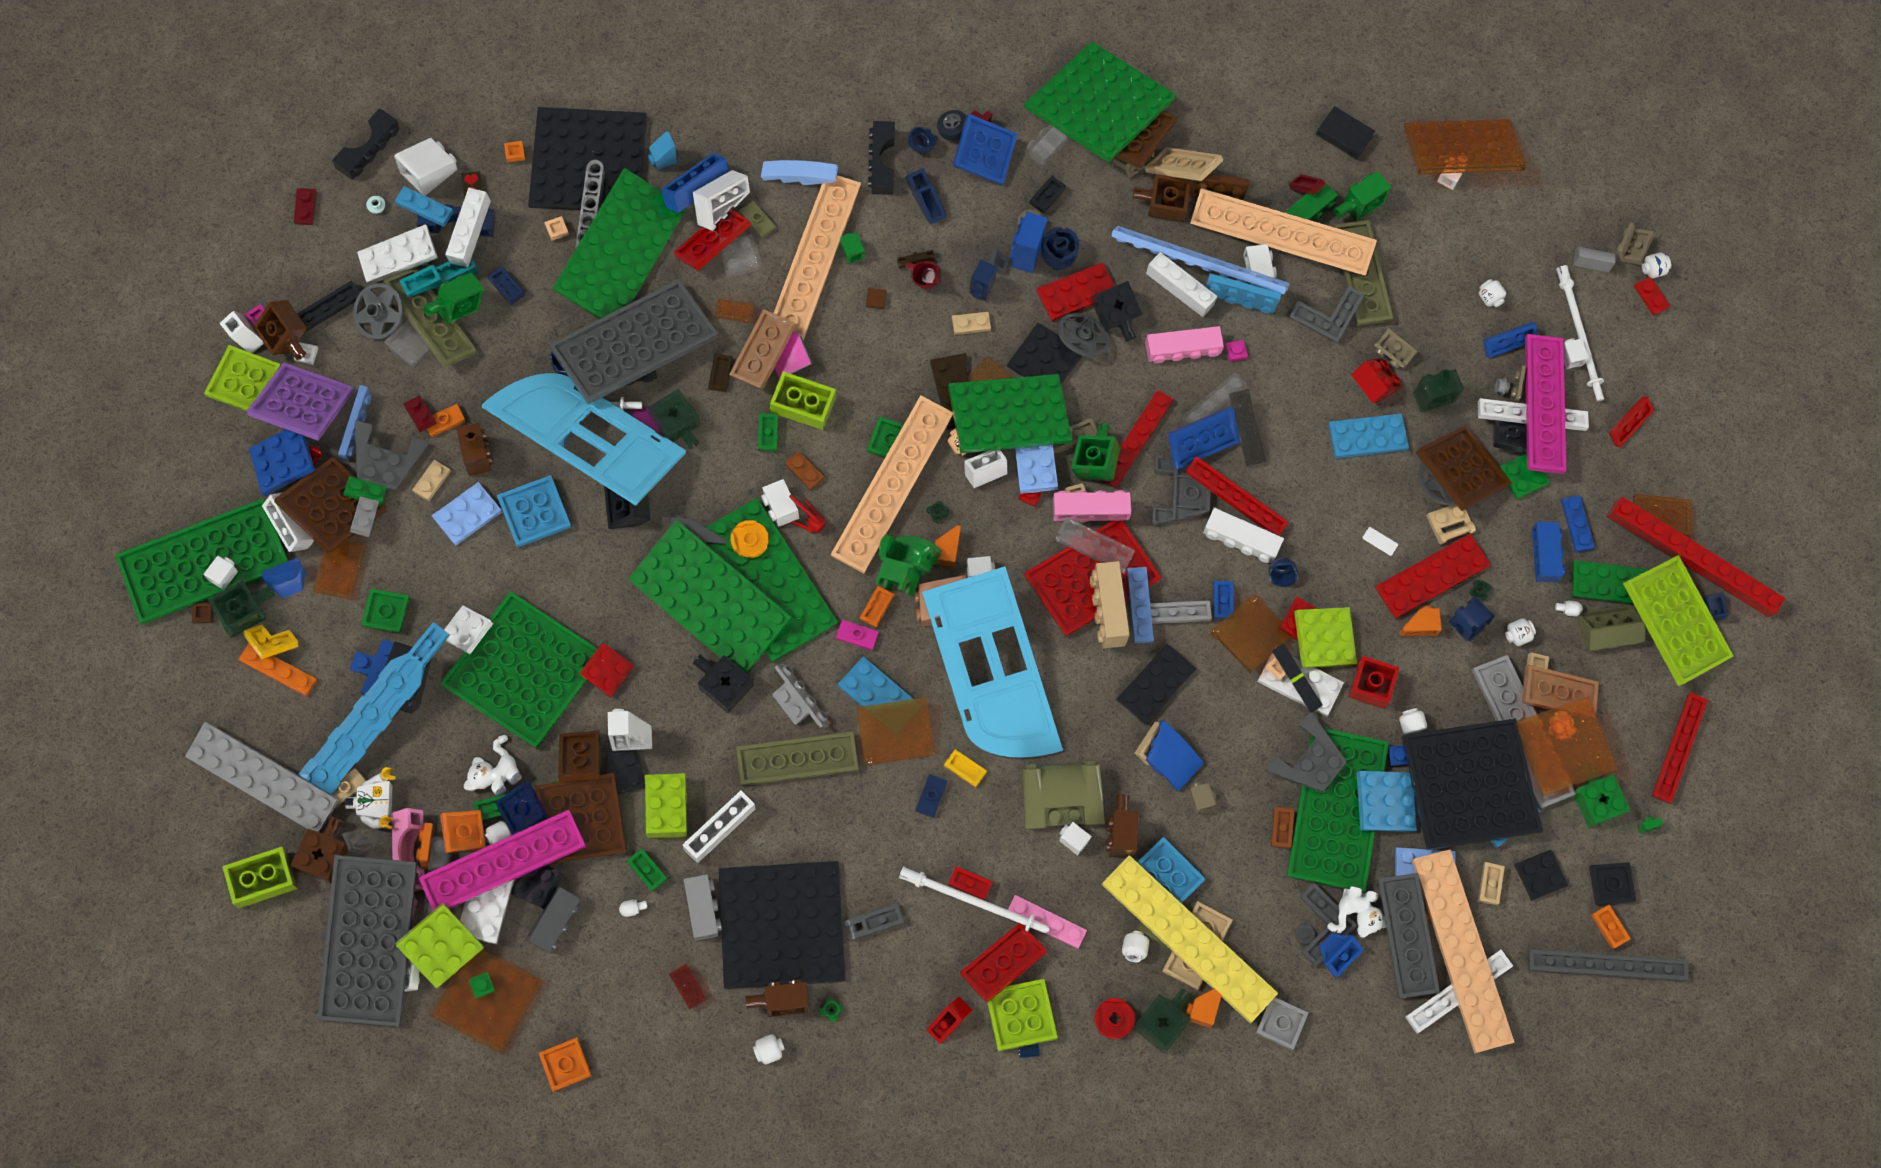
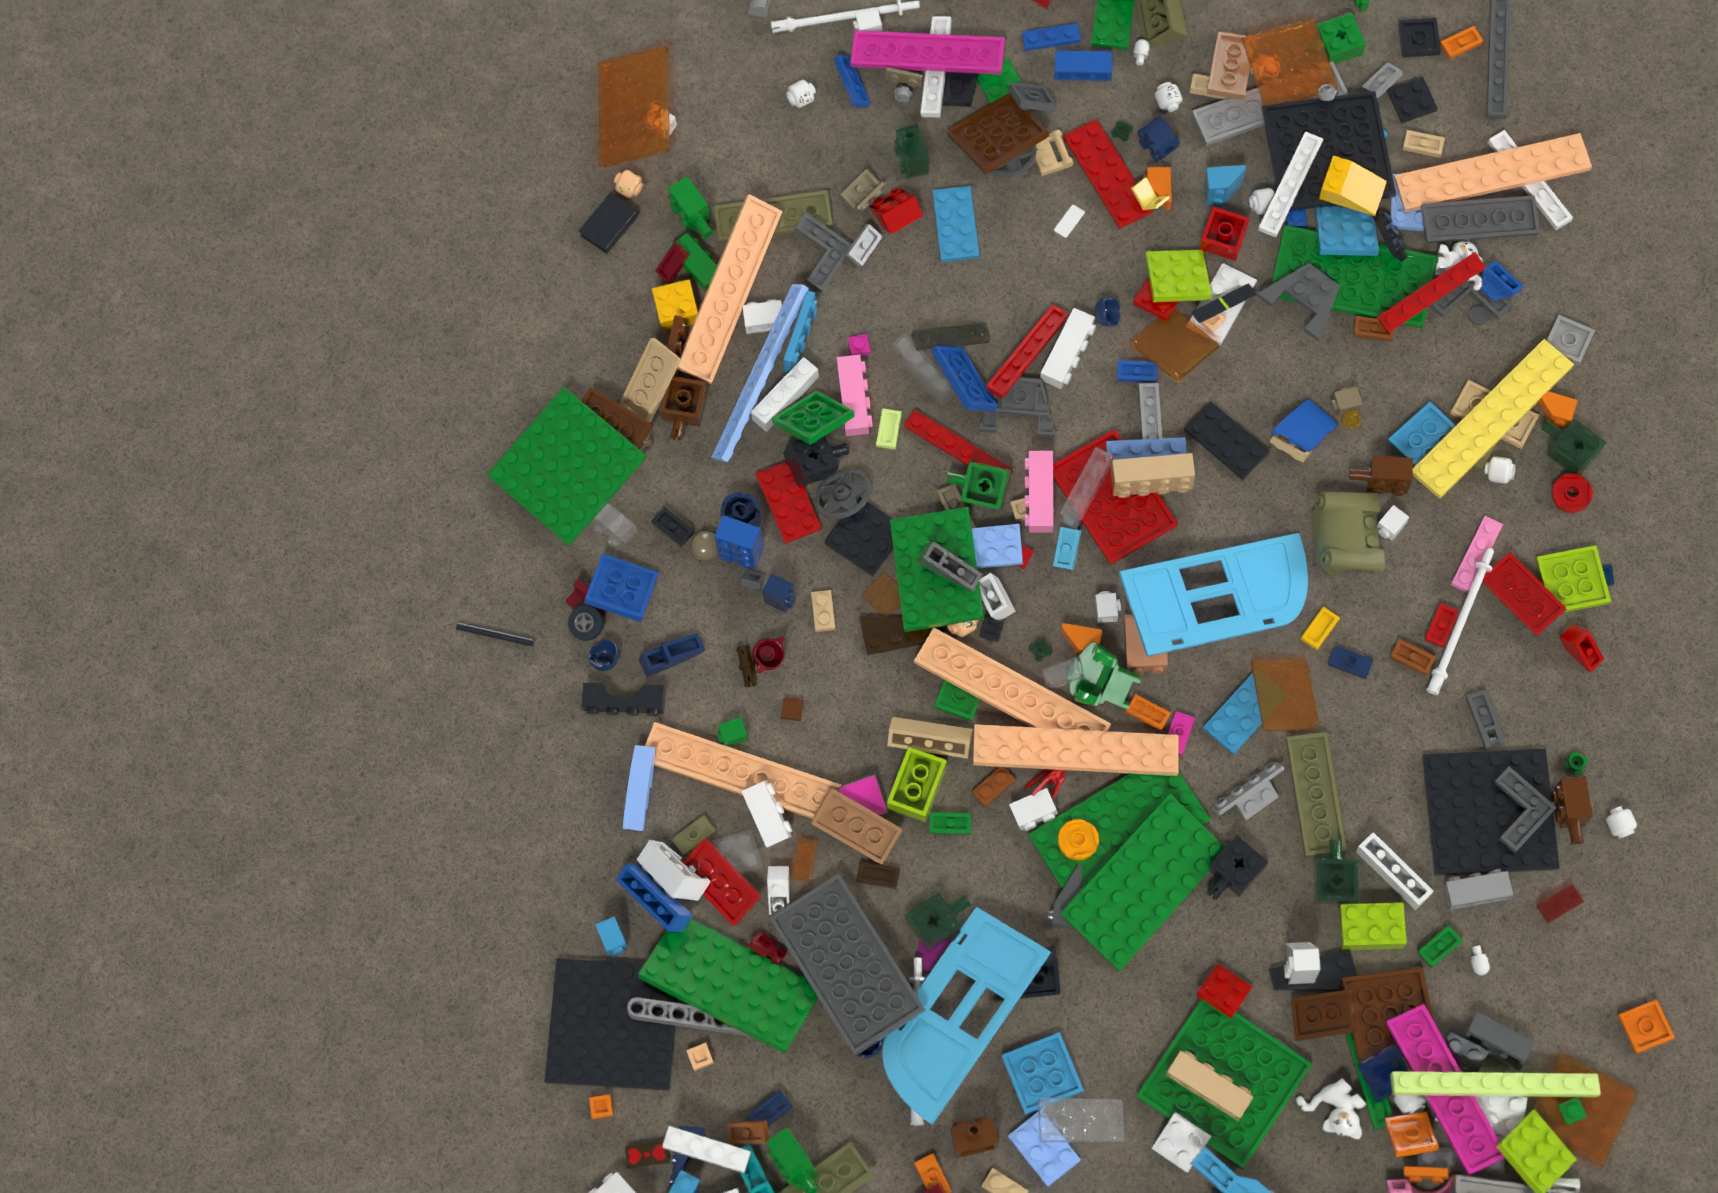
camera: 75 degrees left, 0 degrees up
(486, 265) = (747, 1132): none -> dark orange plate
(487, 541) = (1081, 1120): none -> clear plate
(504, 908) = (1495, 1084): none -> yellowish green plate
(514, 651) = (1209, 1085): none -> tan brick
(654, 278) = (766, 946): none -> dark red plate
(707, 287) = (778, 888): none -> white slope
(717, 781) = (1344, 869): none -> clear green brick
(774, 274) = (767, 813): none -> white brick
(777, 963) = (1535, 804): none -> dark grey plate
(835, 538) = (1075, 750): none -> light nougat plate
(848, 411) = (930, 737): none -> tan brick
(912, 528) = (1063, 673): none -> clear plate
(936, 854) = (1412, 657): none -> dark orange plate
(942, 55) = (495, 634): none -> black bar
(955, 467) = (991, 629): none -> black plate
(1007, 417) = (948, 566): none -> dark grey slope
(1037, 533) = (1067, 548): none -> medium azure plate
(1153, 378) = (888, 429): none -> yellowish green tile
(1156, 304) = (813, 417): none -> green plate
(1183, 802) = (1351, 419): none -> clear yellow plate
(1267, 188) = (675, 300): none -> yellow brick
(1321, 879) = (1431, 292): none -> red plate
(1338, 352) = (863, 245): none -> plate
(1382, 842) = (1390, 235): none -> black plate
(1386, 147) = (628, 183): none -> light nougat head
(1408, 607) = (1146, 195): none -> light yellow bracket
(1426, 680) = (1222, 183): none -> dark azure slope
(1429, 741) = (1290, 184): none -> white plate
(1430, 802) = (1352, 186): none -> yellow slope
(1506, 500) = (1032, 97): none -> dark grey plate
(1535, 781) = (1327, 92): none -> light grey plate
(1559, 843) = (1382, 79): none -> light grey plate

